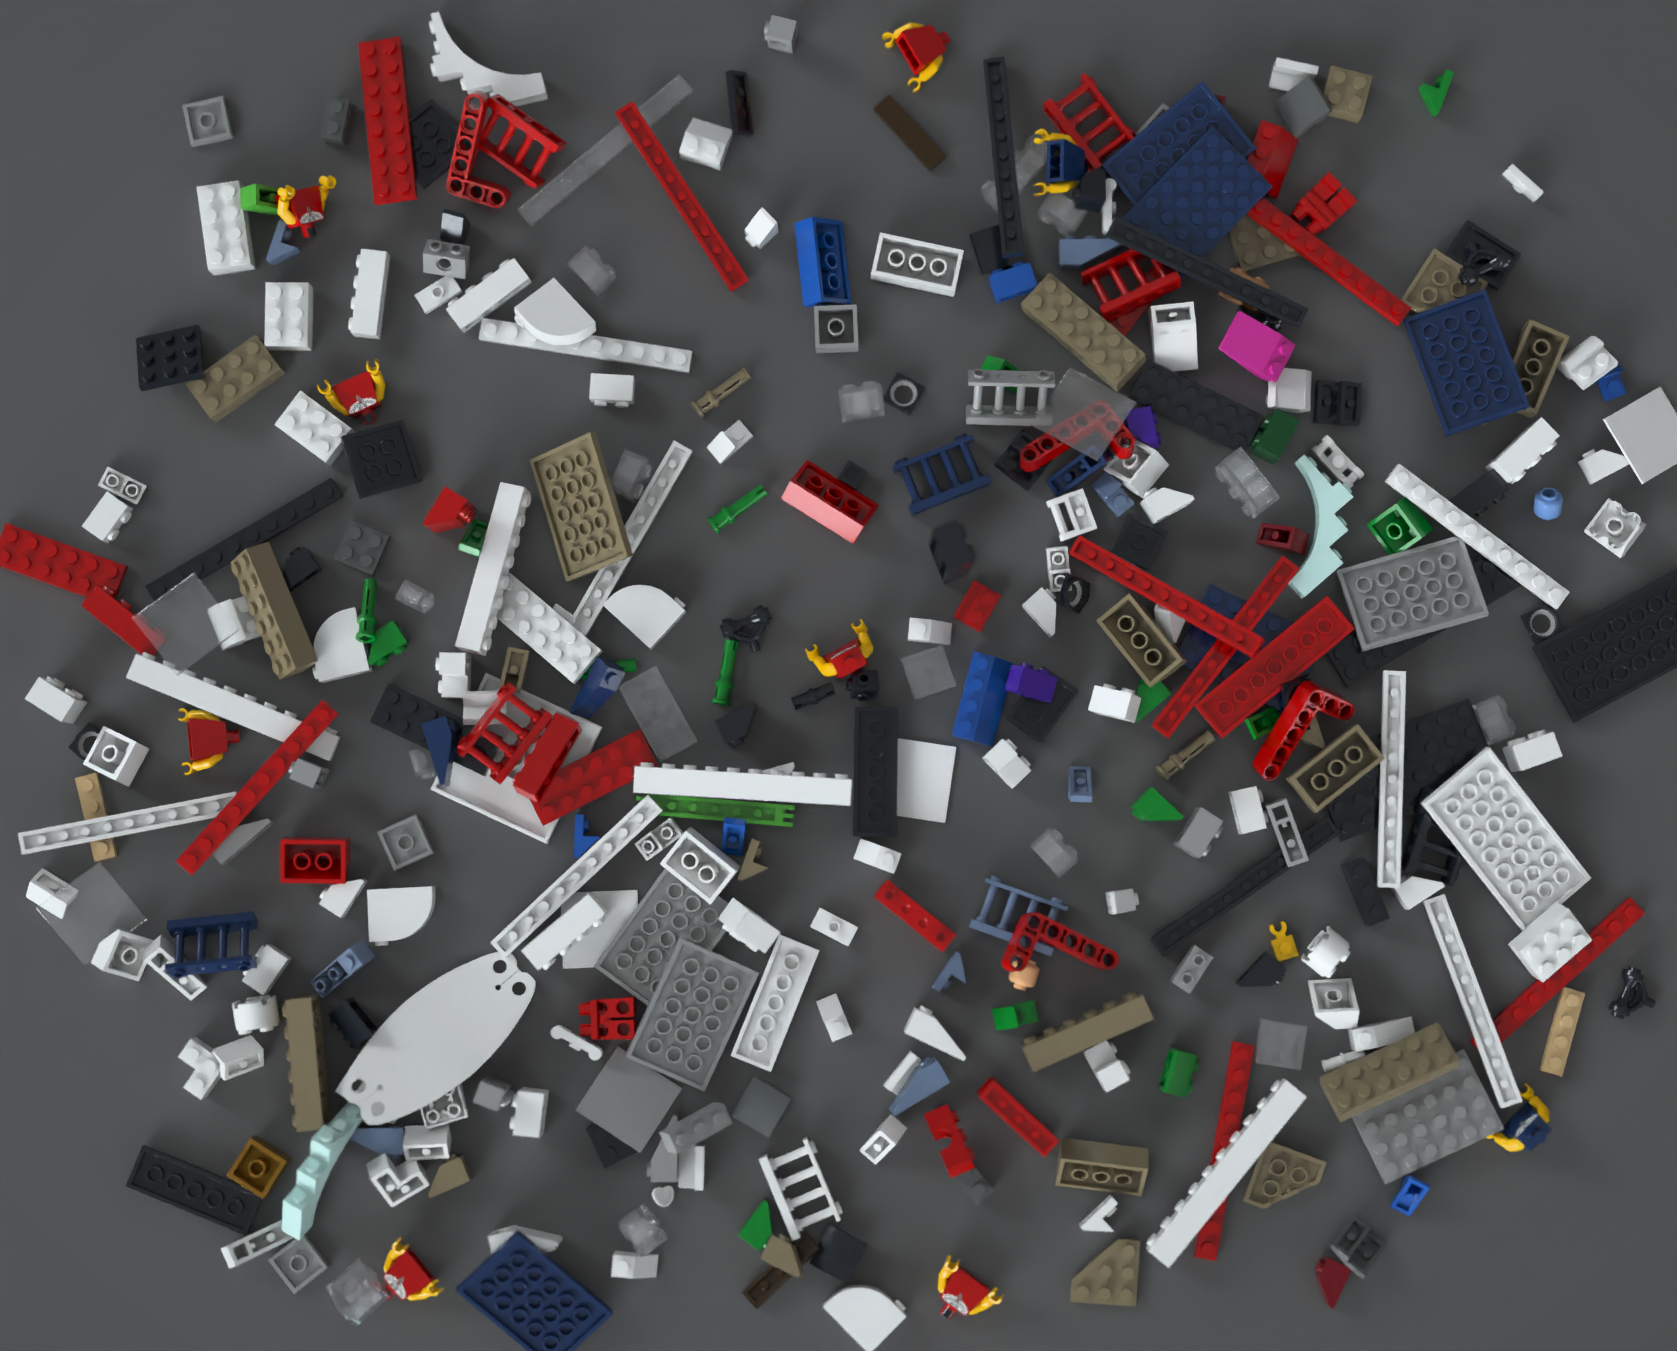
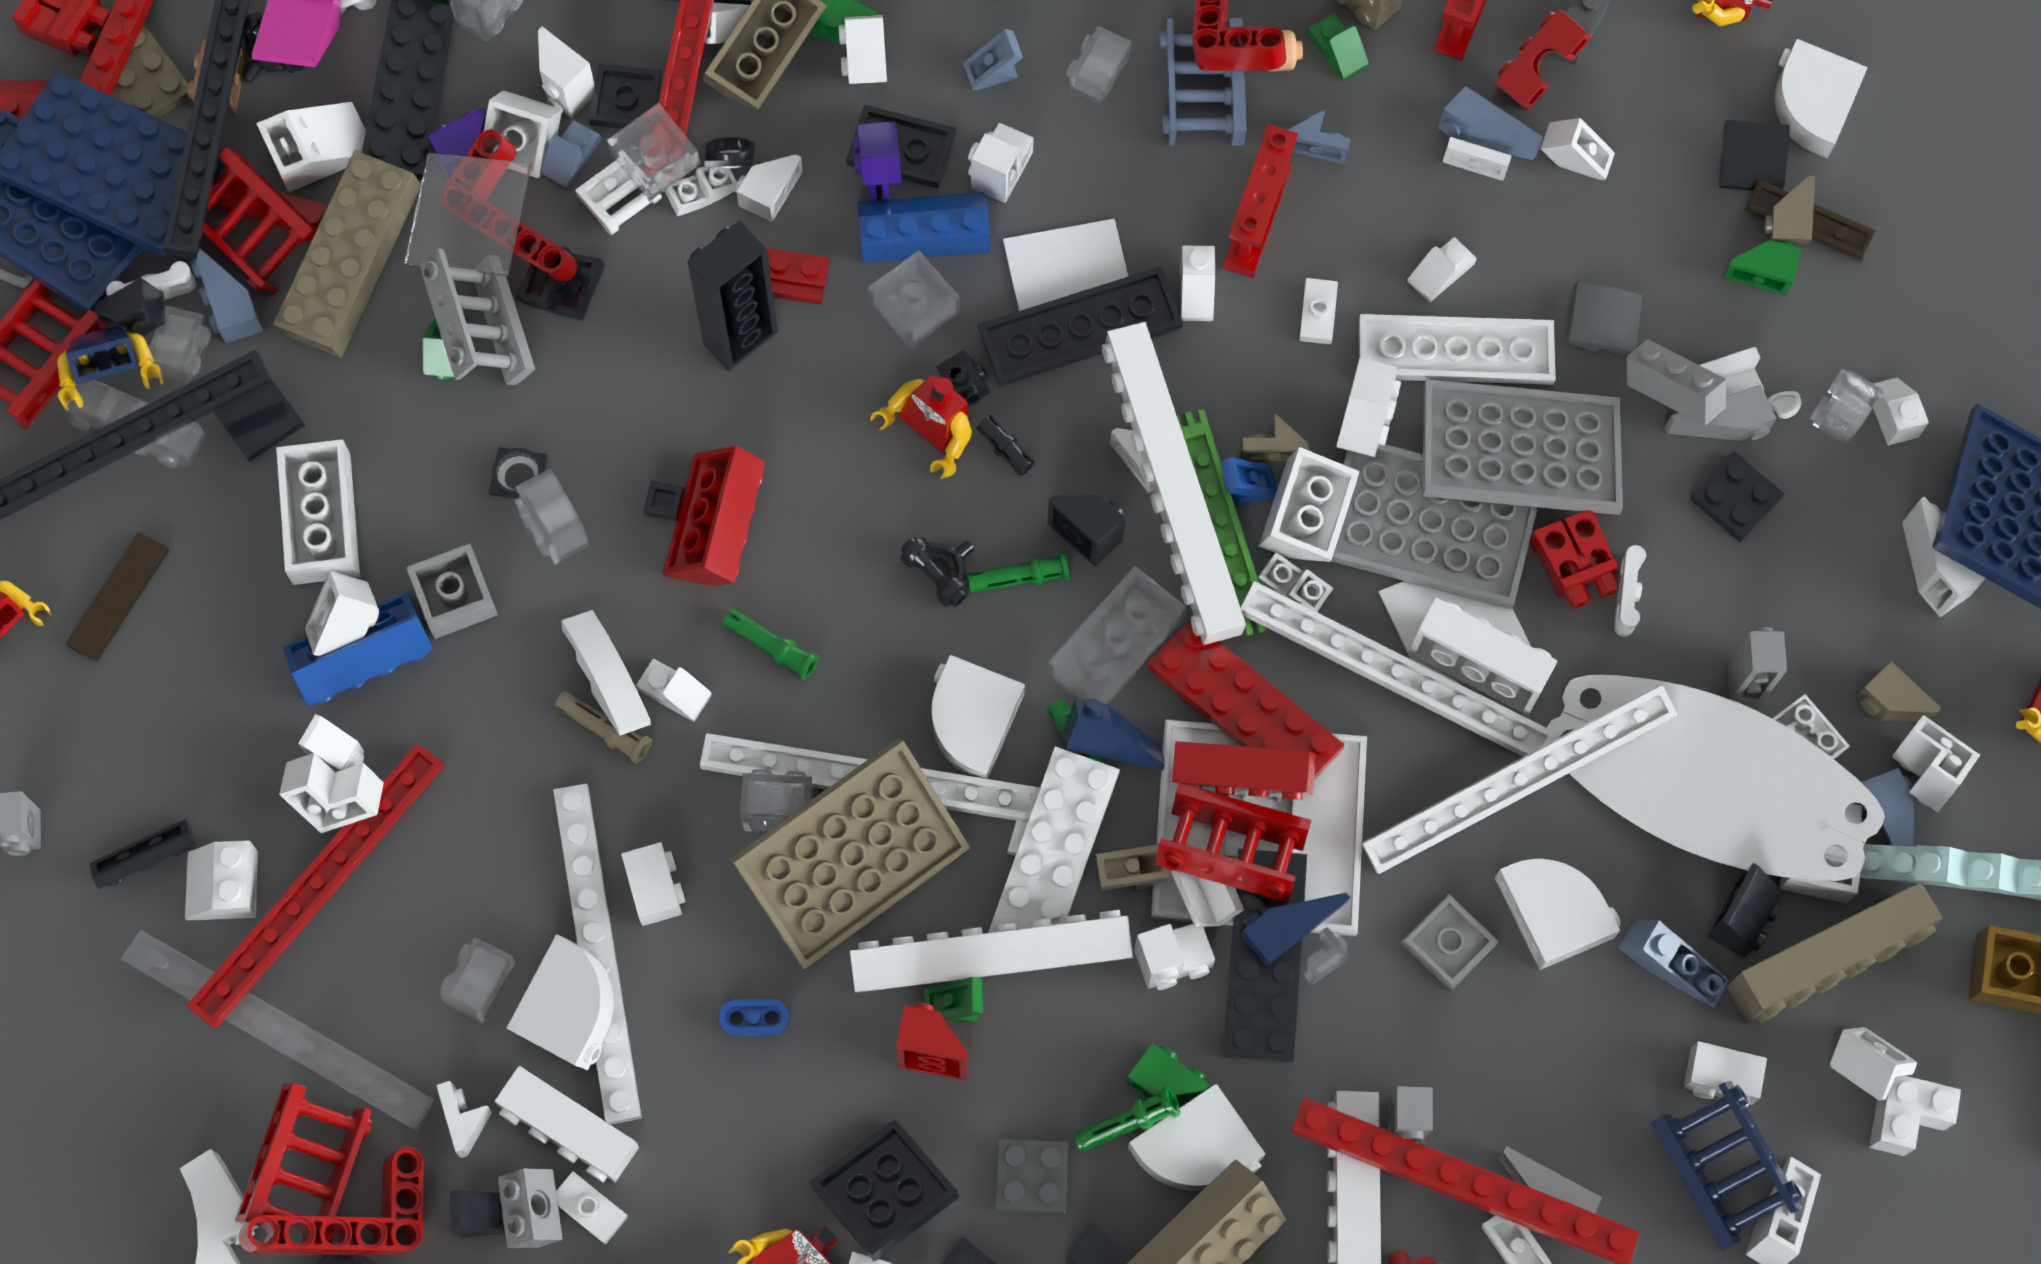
camera: 115 degrees left, 15 degrees down
(256, 1013) = (1799, 1058): white brick -> none
(314, 860) = (1534, 1058): red slope -> none
(341, 897) = (1568, 1001): white slope -> none
(415, 597) = (1079, 1054): clear brick -> none
(427, 1144) = (1871, 745): white brick -> none
(482, 922) = (1519, 779): none -> white plate
(509, 236) = (462, 1126): none -> white slope
(510, 421) = (754, 1015): none -> blue plate
(530, 1112) = (1754, 606): white brick -> none
(581, 842) = (1343, 685): blue slope -> none
(628, 1100) = (1677, 494): light grey piece -> none
(730, 219) = (330, 797): none -> white brick
(752, 403) = (606, 672): none -> white slope
(787, 1205) = (1701, 260): white fence -> none
(843, 258) = (340, 613): none -> white slope
(927, 1028) = (1406, 140): white slope -> none
(929, 631) = (855, 326): white slope -> none
(938, 495) = (632, 351): dark blue fence -> none
(1012, 282) = (303, 377): blue brick -> none
(1076, 472) = (556, 208): dark blue slope -> none
(1083, 542) = (653, 152): none -> clear brick

